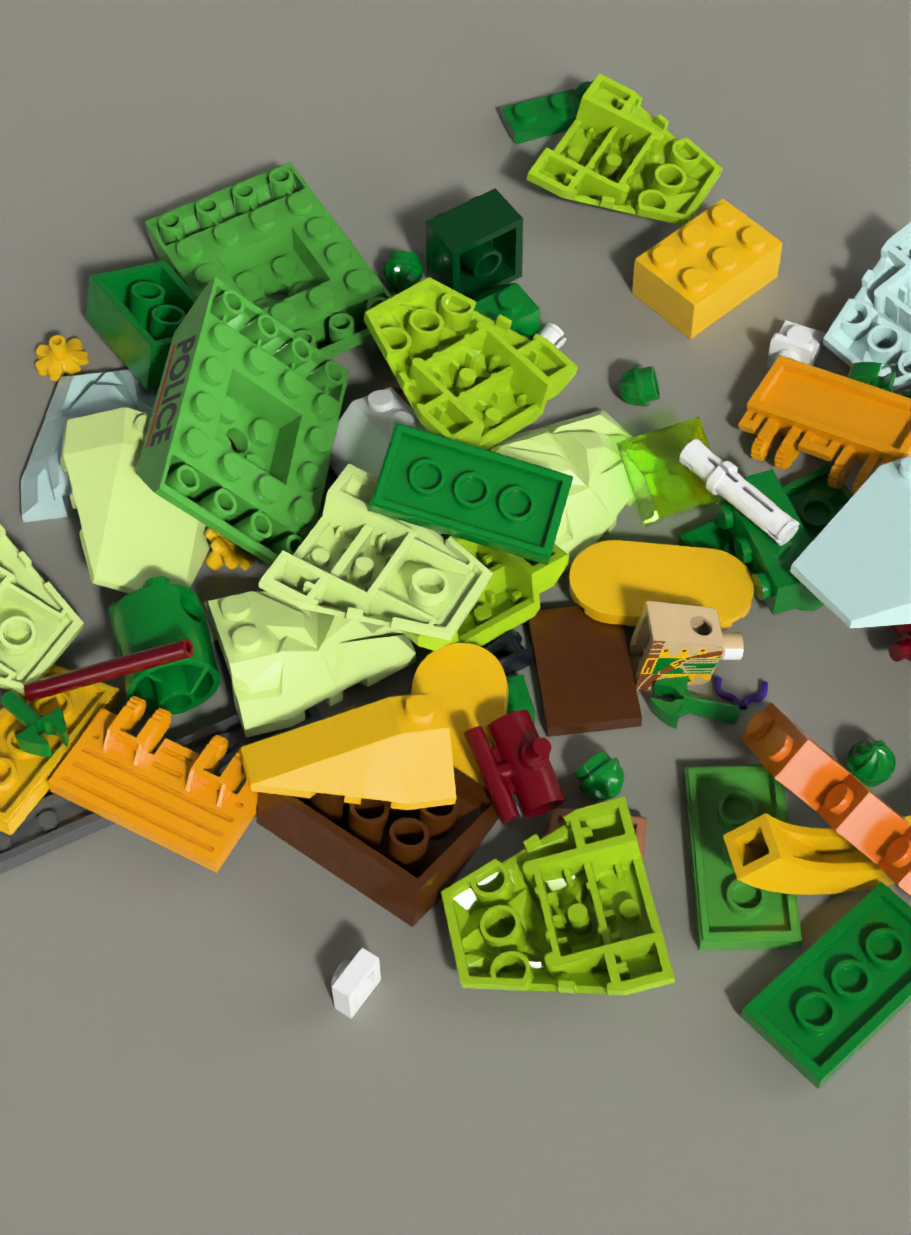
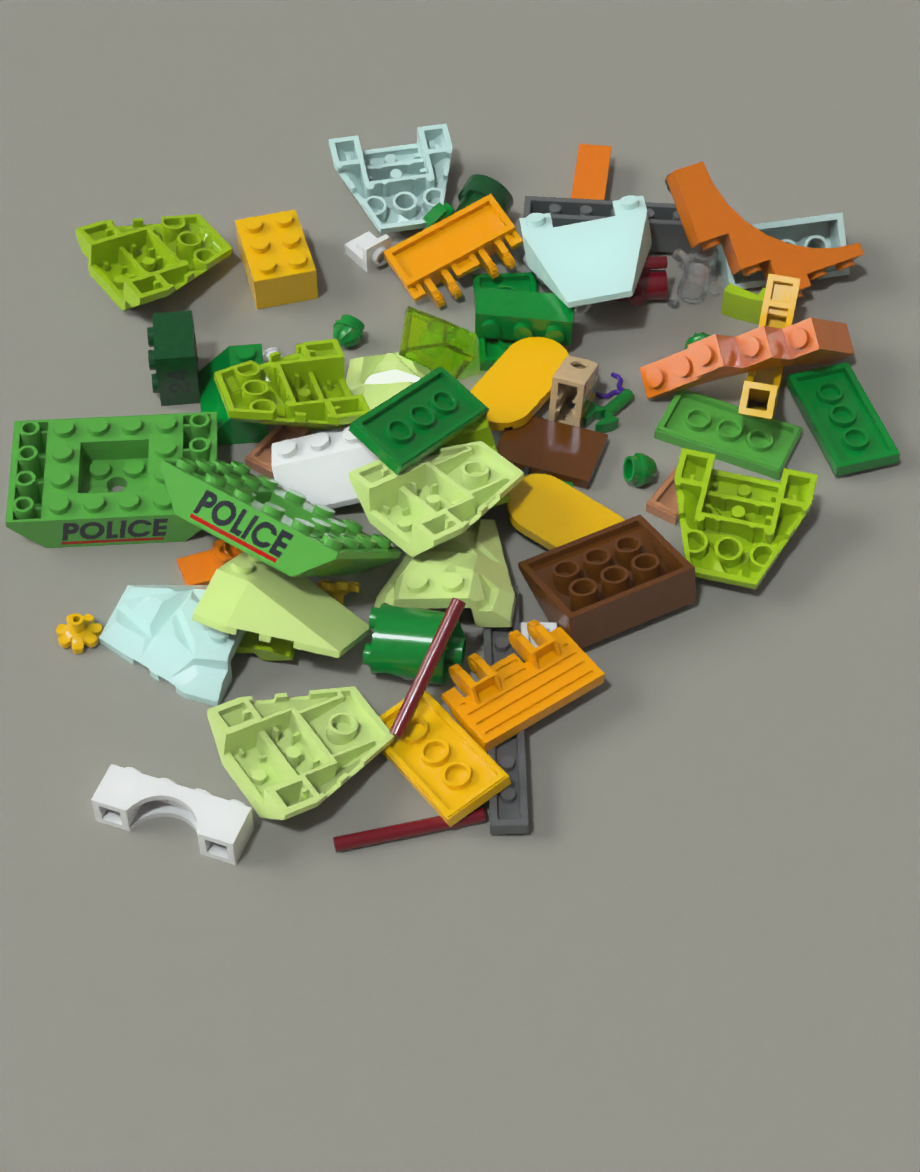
camera: 65 degrees left, 5 degrees down
(35, 724) = (432, 736): green bar -> none
(138, 315) = (111, 551): green brick -> none
(355, 982) = (723, 640): white plate -> none
(376, 752) = (579, 558): yellow wedge -> none
(402, 270) = (153, 404): green plate -> none
(516, 766) = (623, 492): dark red pin -> none
(543, 115) = (63, 281): green hinge -> none
(724, 480) = (487, 305): white pin -> none

